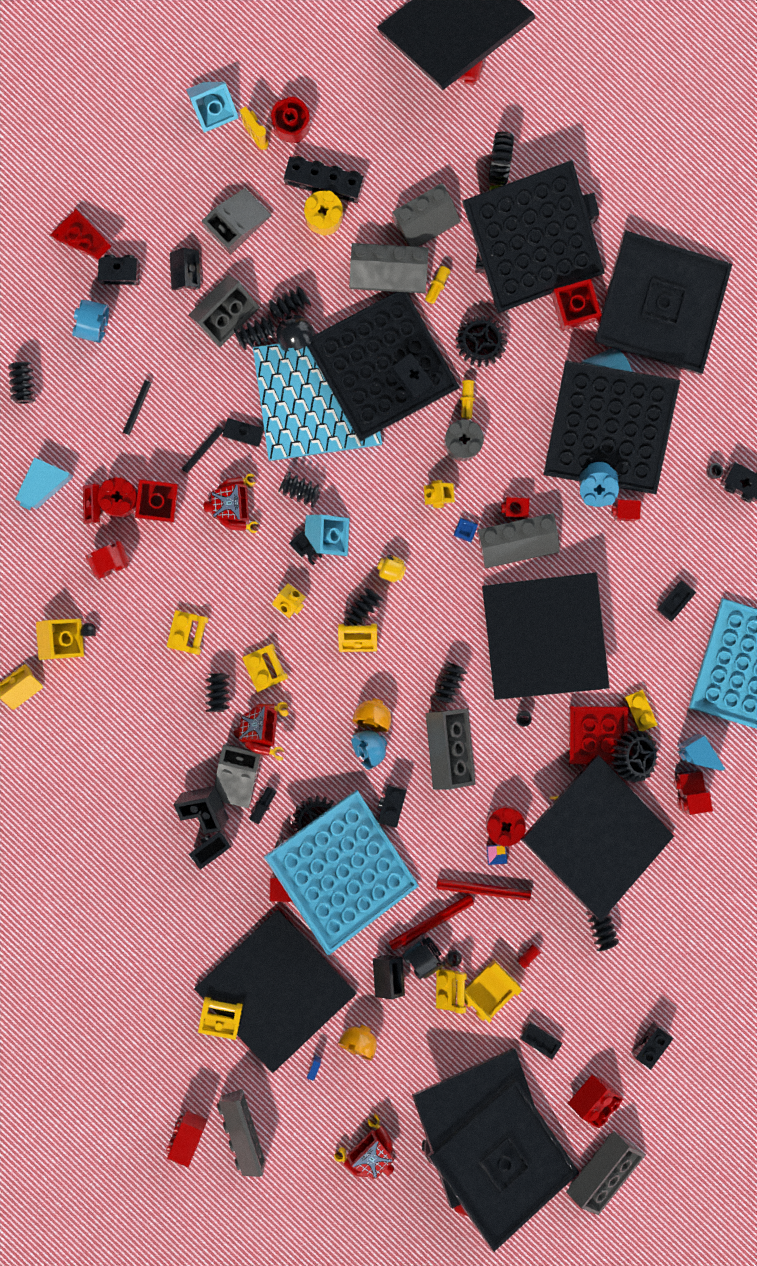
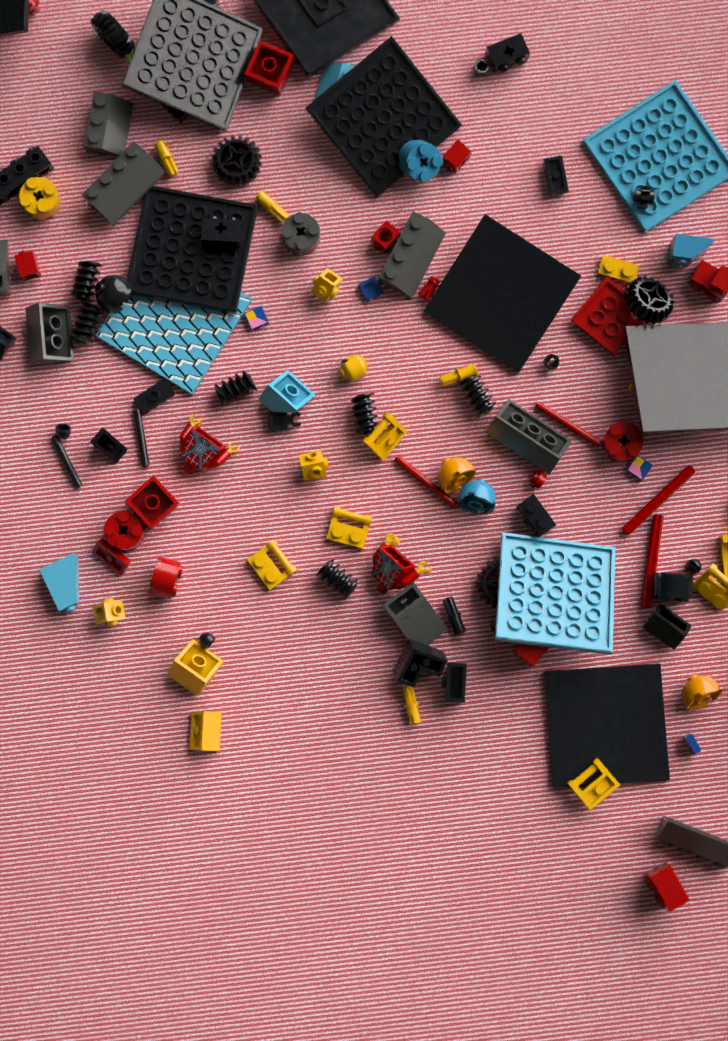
camera: 50 degrees left, 5 degrees down
(46, 538) = (108, 612): none -> yellow brick
(157, 381) = (62, 431): none -> black hinge
(166, 829) = (411, 704): none -> yellow axle
(175, 429) = (109, 445): none -> black slope
(263, 247) = (27, 265): none -> red brick
(349, 696) = (425, 481): none -> red bar
(369, 460) = (256, 318): none -> tile
(422, 783) = (537, 479): none -> red plate
(453, 654) = (458, 375): none -> yellow axle
(485, 771) = (568, 424): none -> red bar
(504, 575) = (430, 287): none -> red pin
(714, 685) = (643, 197): none -> black gear

